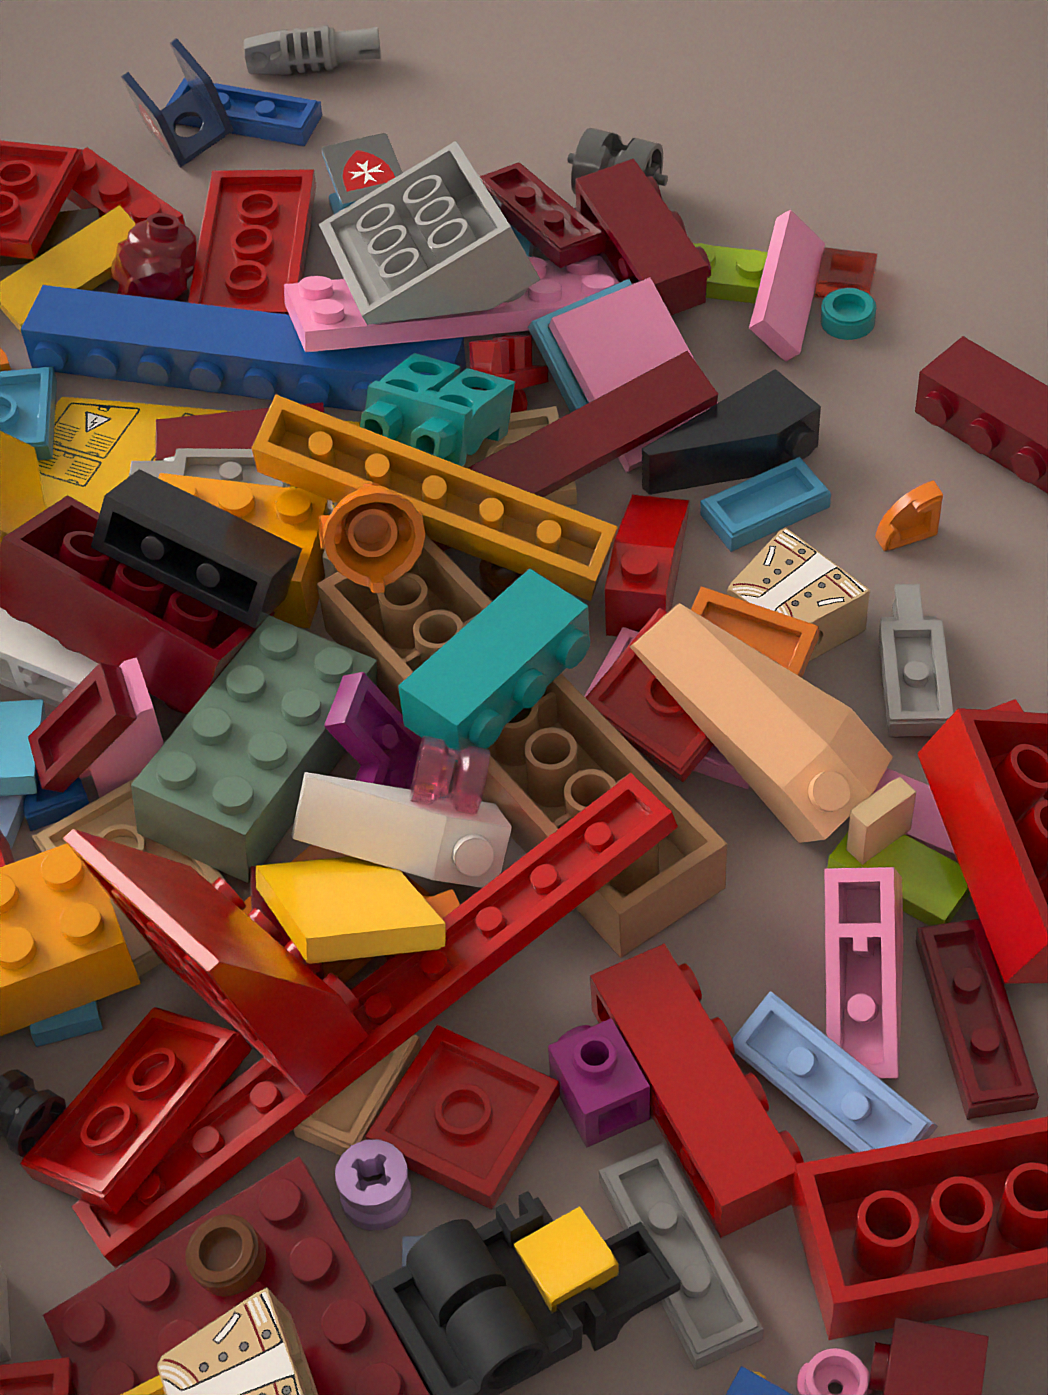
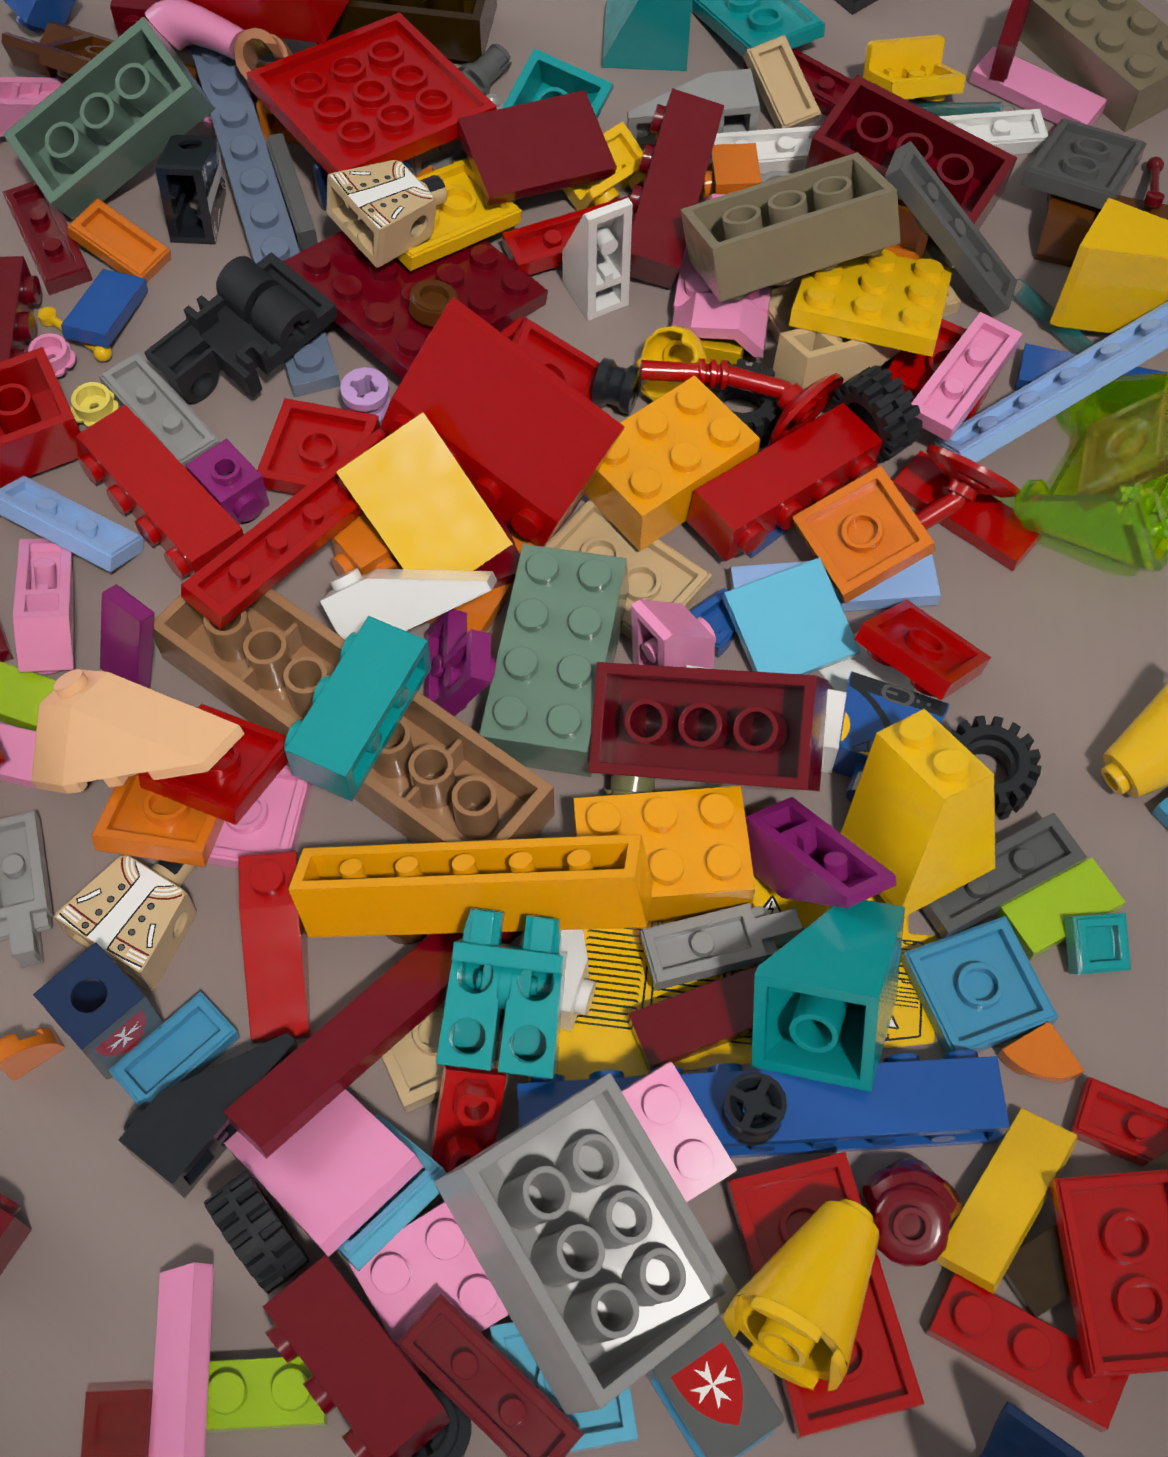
camera: 160 degrees right, 10 degrees up
(81, 437) = (810, 859): none -> magenta slope
(81, 727) = (694, 610): dark red tile -> none
(128, 365) = (830, 997): none -> teal slope
(195, 547) = (661, 759): black brick -> none
(249, 311) = (758, 1096): none -> black wheel
(263, 201) = (810, 1297): none -> yellow cone
(373, 536) = (506, 802): orange helmet -> none
(434, 774) = (380, 600): clear pink wheel -> none
(567, 1258) = (211, 328): yellow slope -> none
(710, 328) = (256, 1232): none -> black tyre
(758, 859) = (126, 636): none -> magenta tile
(779, 1259) = (92, 403): none -> light yellow plate
(843, 516) = (113, 1028): none -> dark blue piece
(848, 313) = (111, 1357): teal tile -> none
(880, 820) = (25, 696): tan tile -> none

